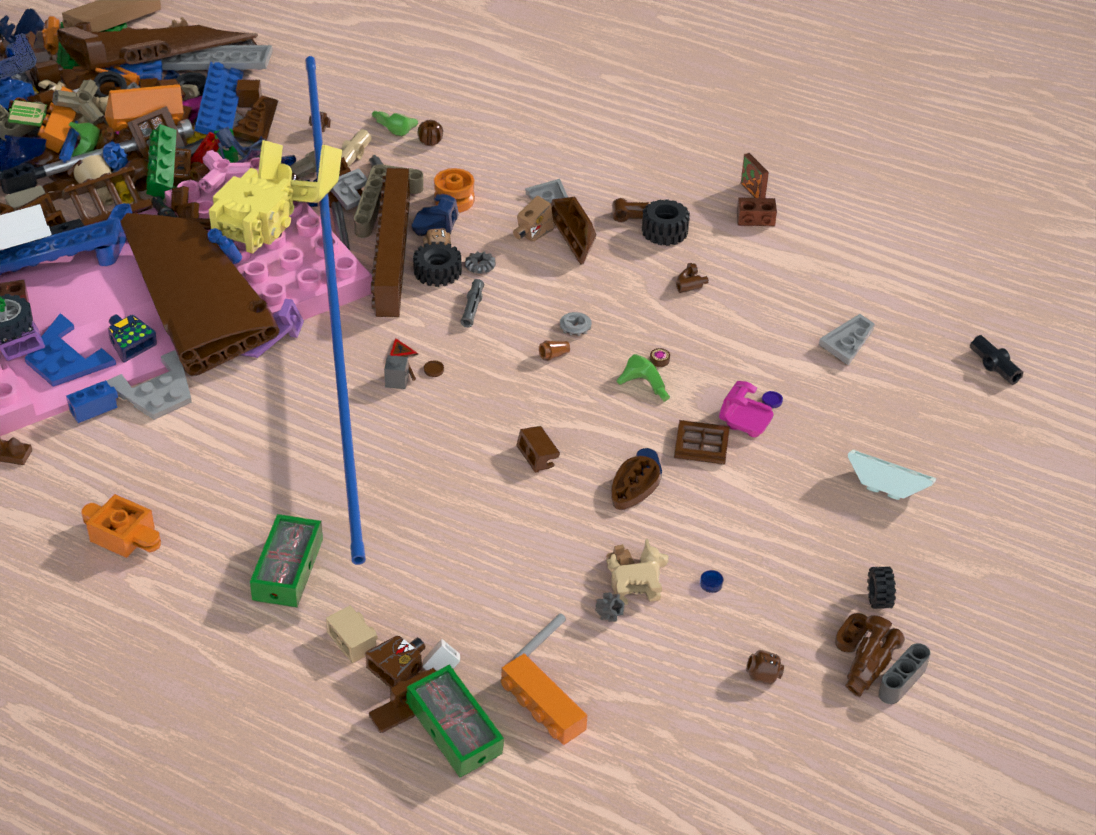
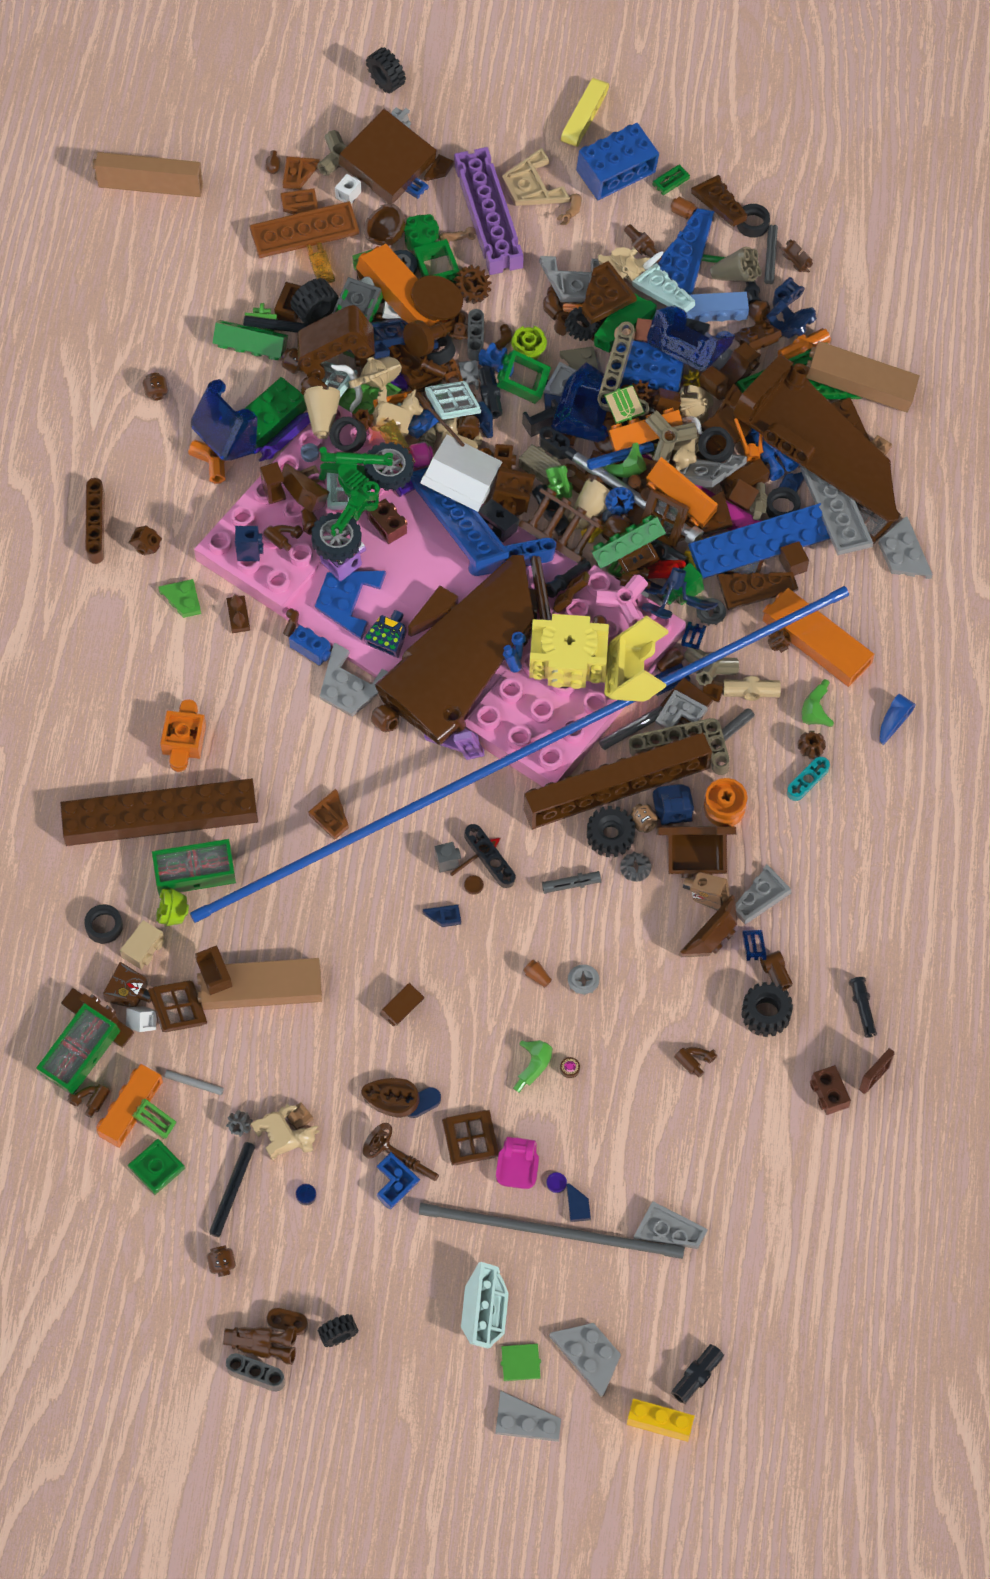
camera: 70 degrees right, 20 degrees up
(54, 407) = (293, 616): none -> reddish brown arm
(55, 189) = (559, 481): none -> bright green hips
(69, 210) = (548, 515): none -> black piece
(130, 290) = (434, 610): none -> reddish brown slope
(196, 579) = (158, 812): none -> reddish brown brick
(215, 373) = (385, 718): none -> reddish brown head
(288, 45) = (903, 551): none -> light grey wing
(295, 443) = (330, 815): none -> dark orange wing
(303, 648) = (110, 936): none -> black tyre
(324, 592) = (172, 908): none -> lime cone
(336, 100) = (821, 639): none -> orange brick
(426, 567) = (213, 970): none -> reddish brown panel
(433, 85) = (895, 717): none -> blue piece
(435, 344) = (492, 854): none -> black beam
(444, 622) = (177, 1006): none -> reddish brown piece
(454, 548) = (266, 984): none -> medium nougat brick
(455, 396) = (444, 916): none -> dark blue tile
(458, 147) = (805, 786): none -> teal beam
(489, 216) = (696, 849): none -> reddish brown windscreen
(521, 730) = (99, 1095): none -> reddish brown plant
(571, 678) = (140, 1109): none -> bright green tile
(602, 212) = (755, 954): none -> clear blue tile
(626, 699) = (156, 1166): none -> green tile
(682, 639) = (232, 1189): none -> black axle
(687, 500) = (377, 1138): none -> reddish brown dish
(692, 176) = (861, 997): none -> black pin
(729, 499) = (400, 1182): none -> blue brick
(771, 486) = (664, 1249): none -> dark grey piece
(800, 390) = (578, 1205): none -> dark blue tile
(949, 473) = (520, 1362): none -> bright green piece
(956, 424) = (589, 1353): none -> light grey wing
(1009, 486) = (525, 1420): none -> light grey wing
(1036, 392) = (660, 1420): none -> yellow brick

